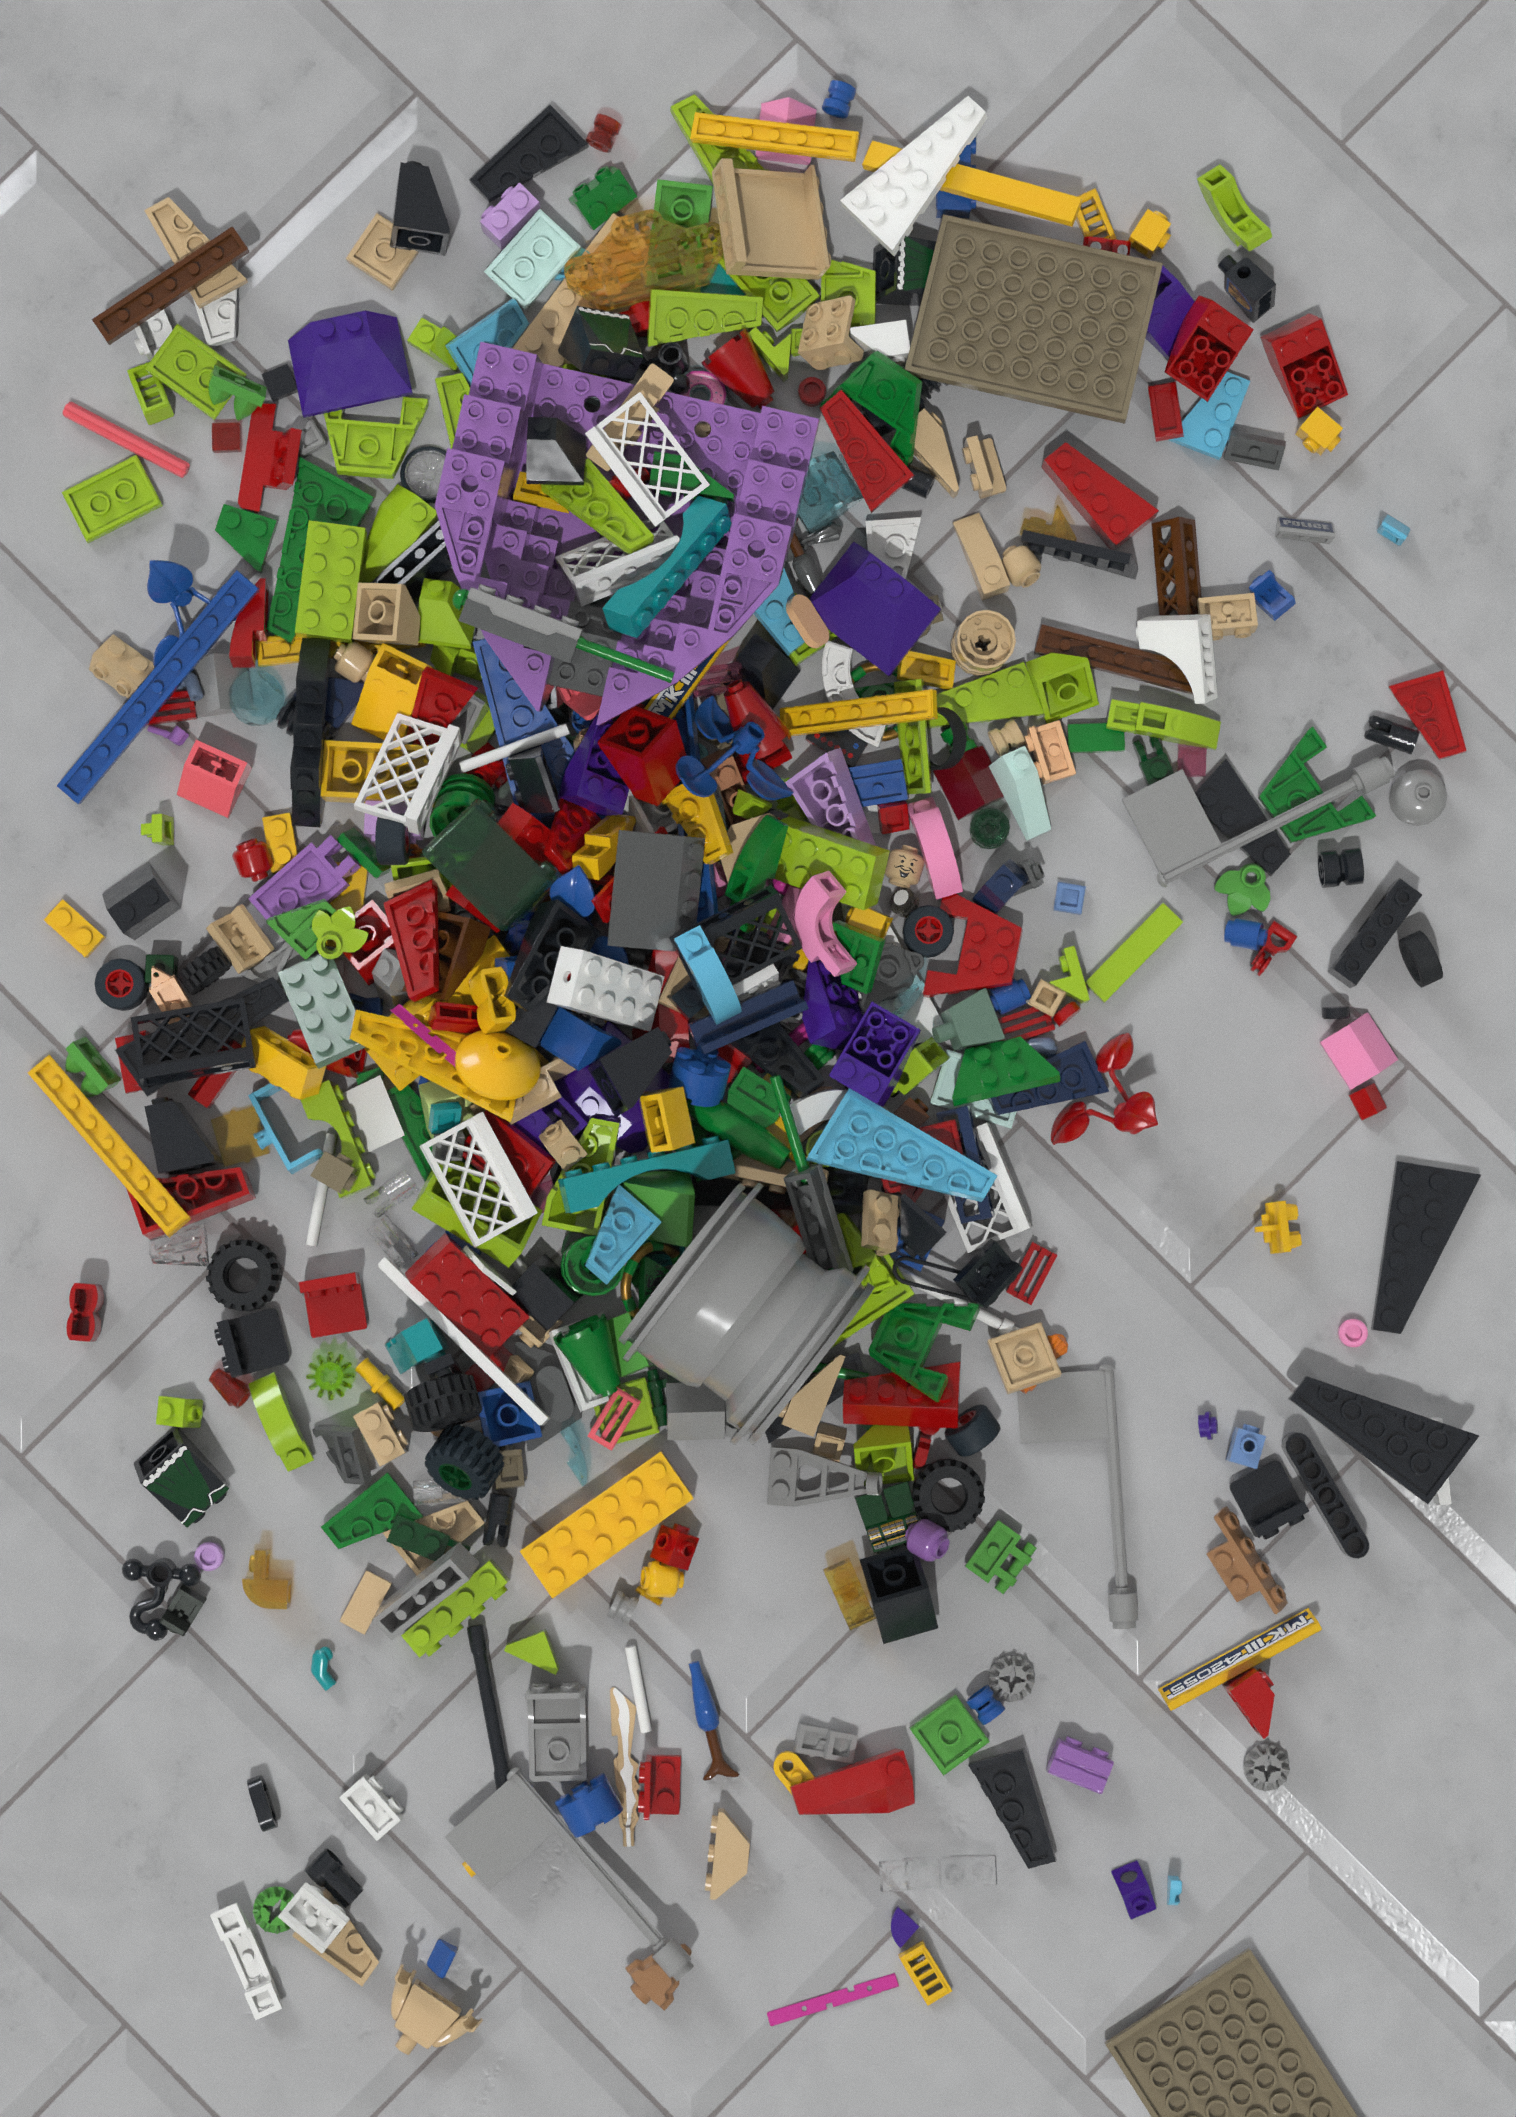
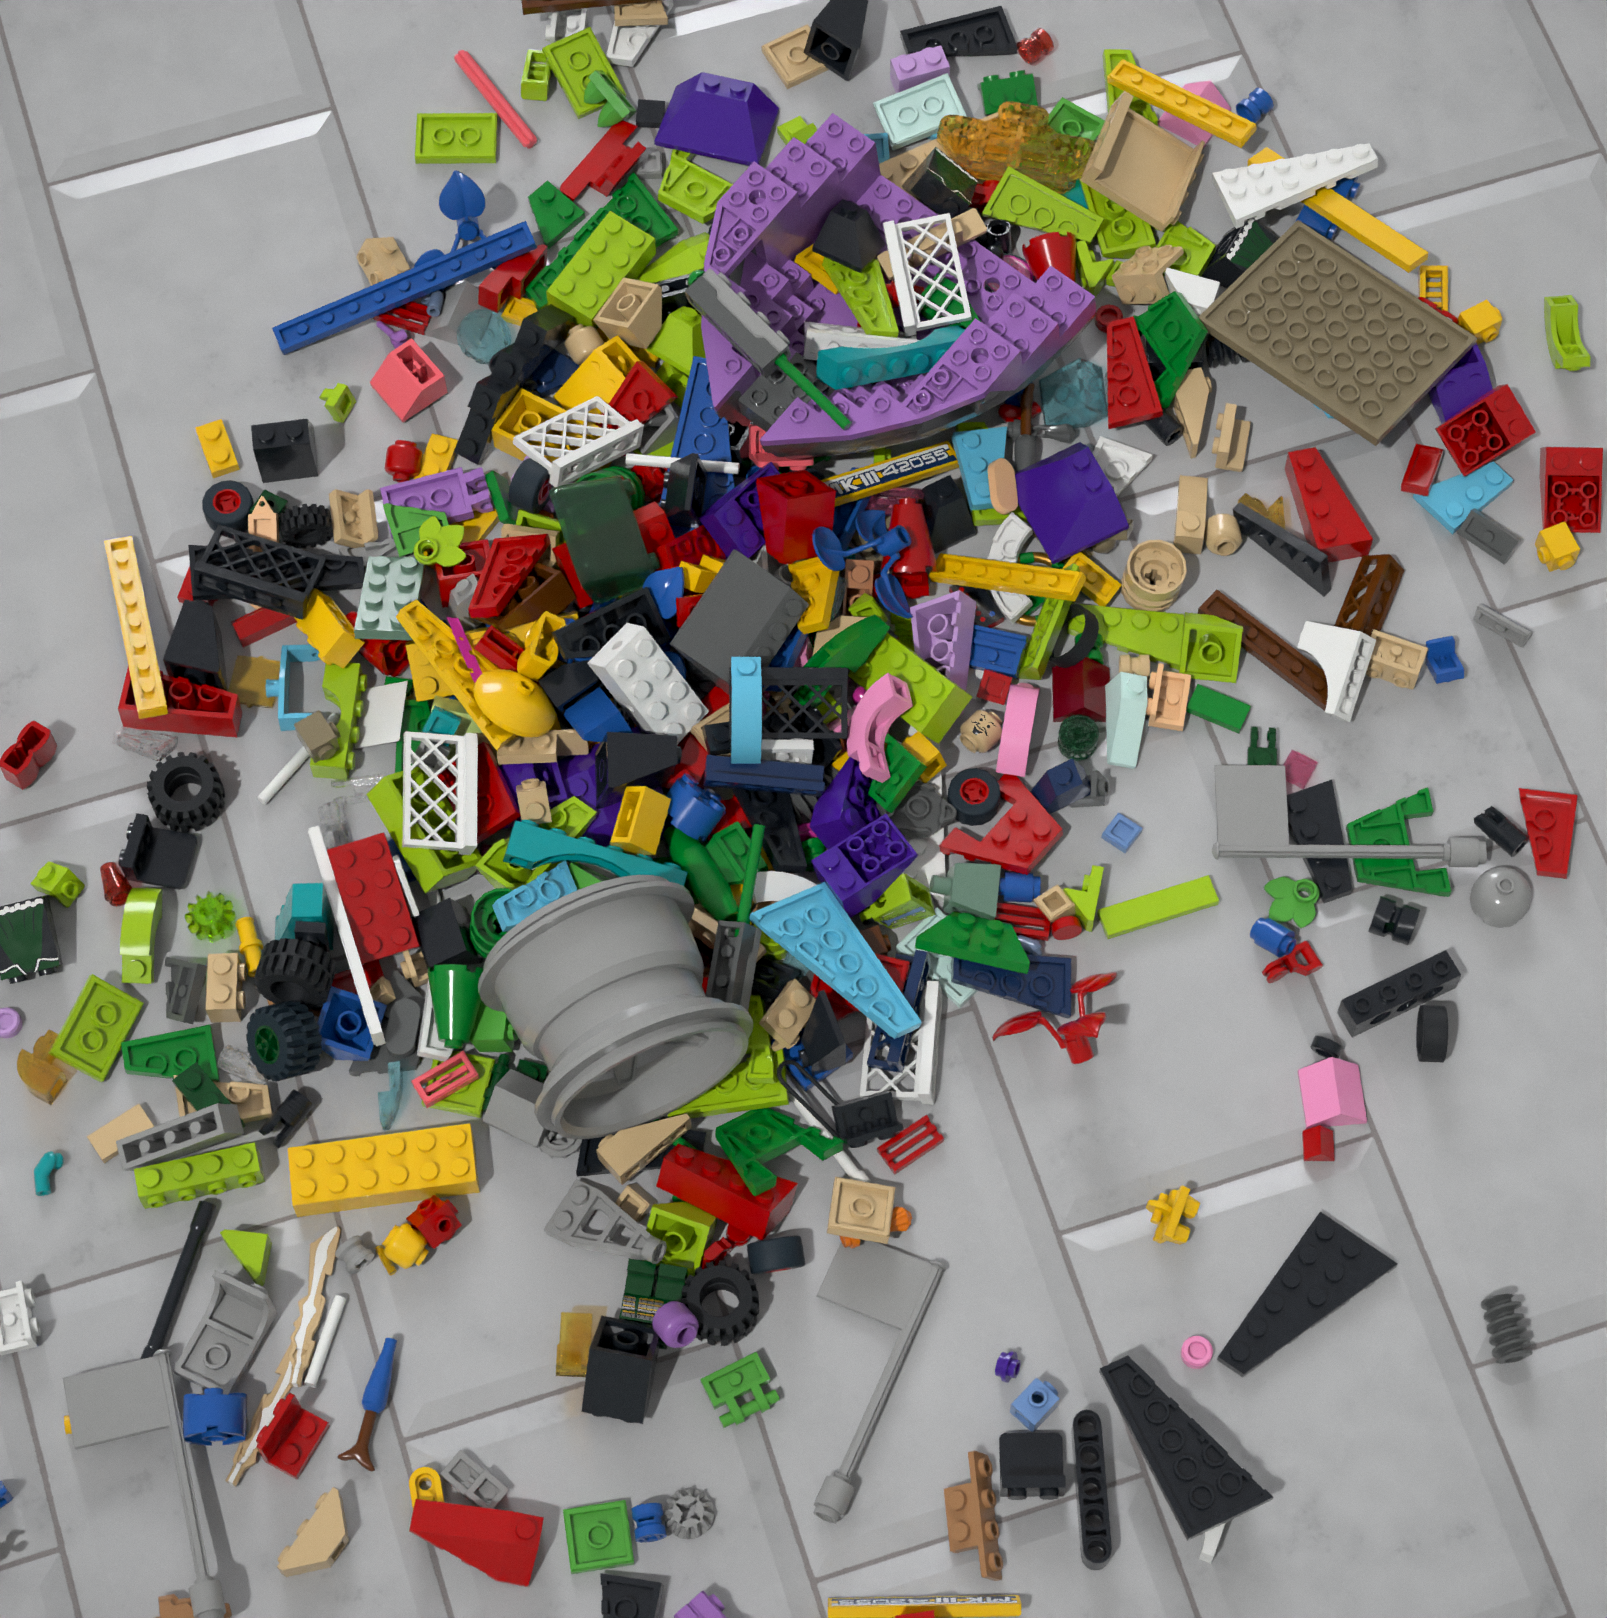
camera: 30 degrees right, 20 degrees down
(86, 1058) = (162, 554): bright green tile -> none
(226, 437) = (580, 134): clear red tile -> none
(292, 1525) = (96, 1028): none -> lime tile
(334, 1304) = (252, 855): red bracket -> none
(512, 1473) = (325, 1077): dark tan bracket -> none
(610, 1667) = (312, 1306): none -> tan sword
(904, 902) = (964, 760): clear smoke tile -> none
(908, 999) = (926, 838): clear light blue slope -> none
(1163, 723) = (1290, 719): lime slope -> none
(1248, 286) = (1549, 402): black torso -> none
(1393, 530) = (1587, 660): medium azure slope -> none

